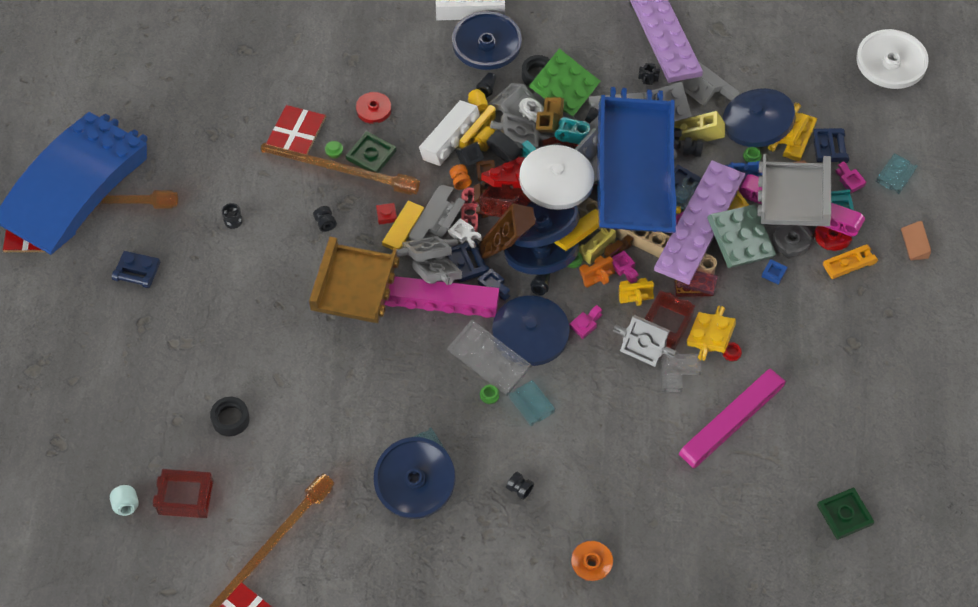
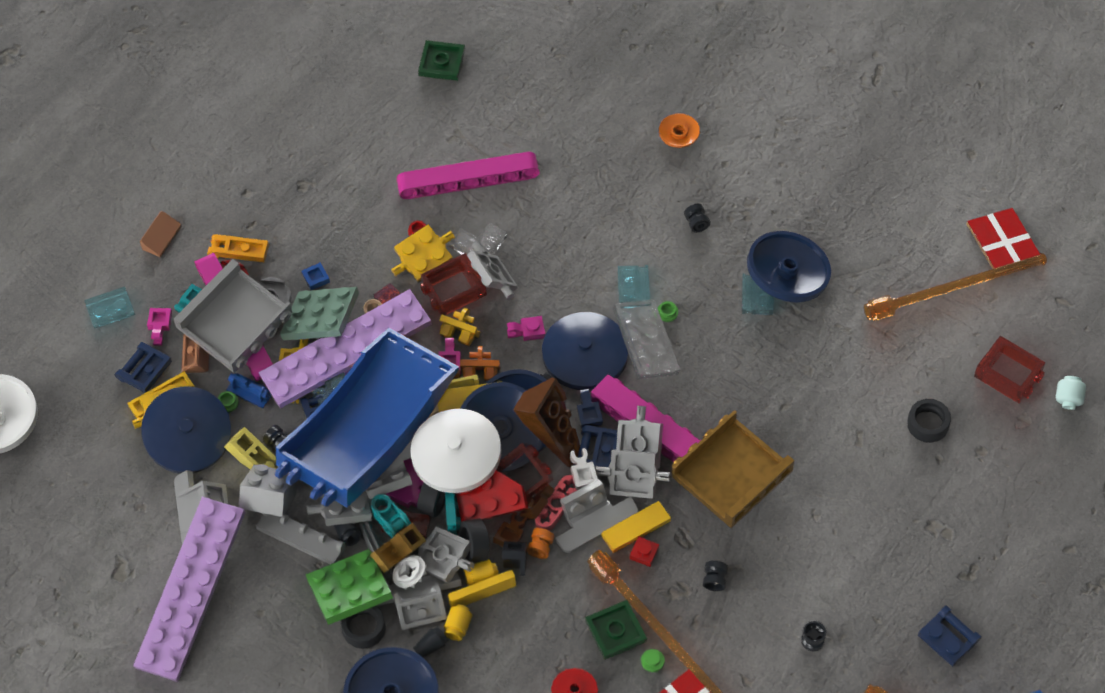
camera: 145 degrees left, 0 degrees up
(448, 133) = (515, 597): white brick -> none
(649, 73) = (248, 550): black gear -> none

